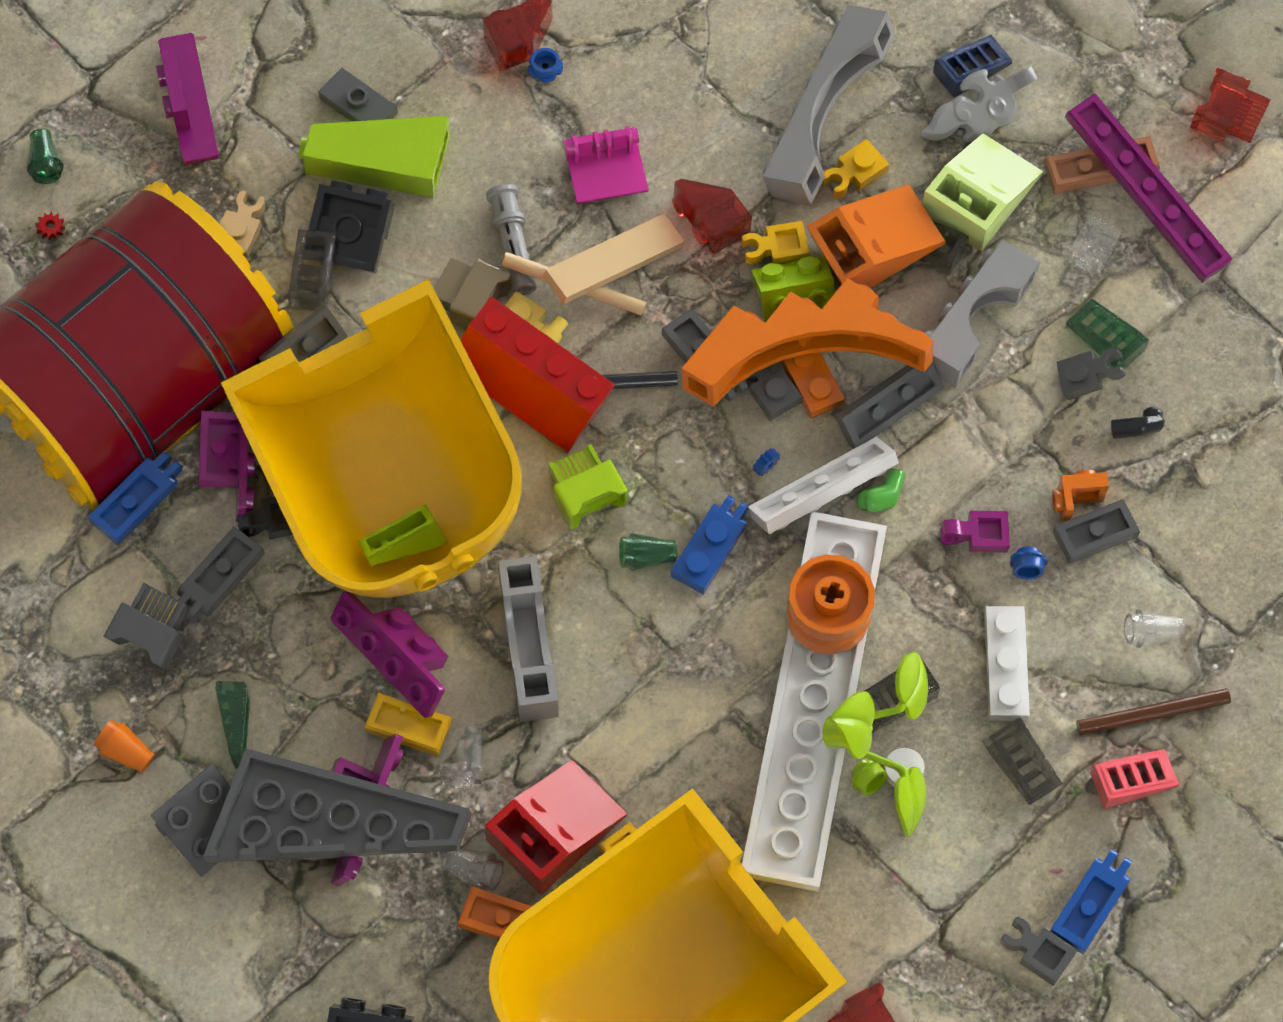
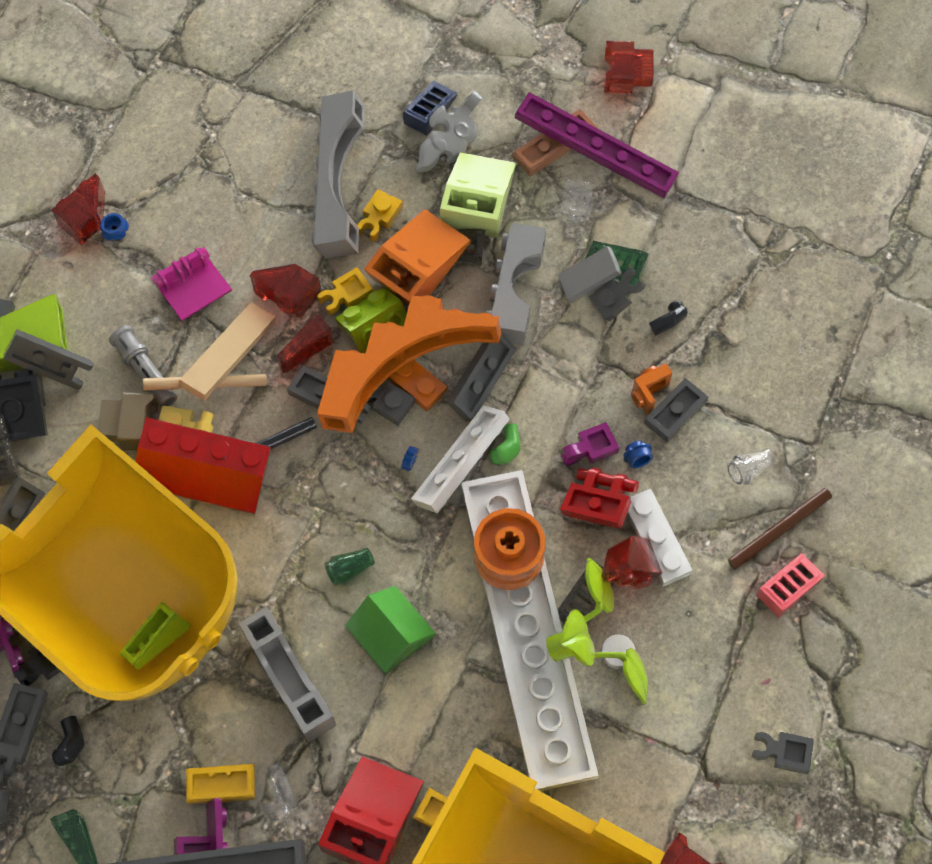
camera: 20 degrees left, 0 degrees up
(268, 616) = (71, 744): none -> black arm
(395, 648) = (185, 727): magenta bracket -> none
(408, 187) = (46, 359): none -> dark grey hinge
(585, 485) = (279, 533): lime piece -> none
(661, 637) = (389, 628): none -> bright green slope
(707, 285) = (309, 341): none -> clear red slope
(710, 545) = (395, 540): blue hinge -> none
(868, 777) = (595, 673): lime plate -> none
(955, 600) = (599, 505): none -> red plate
(961, 678) = (631, 563): none -> clear red slope
(1026, 742) = (697, 616): clear smoke slope -> none
(1067, 336) = (589, 274): none -> light grey tile
(1092, 902) = (806, 695): blue hinge -> none

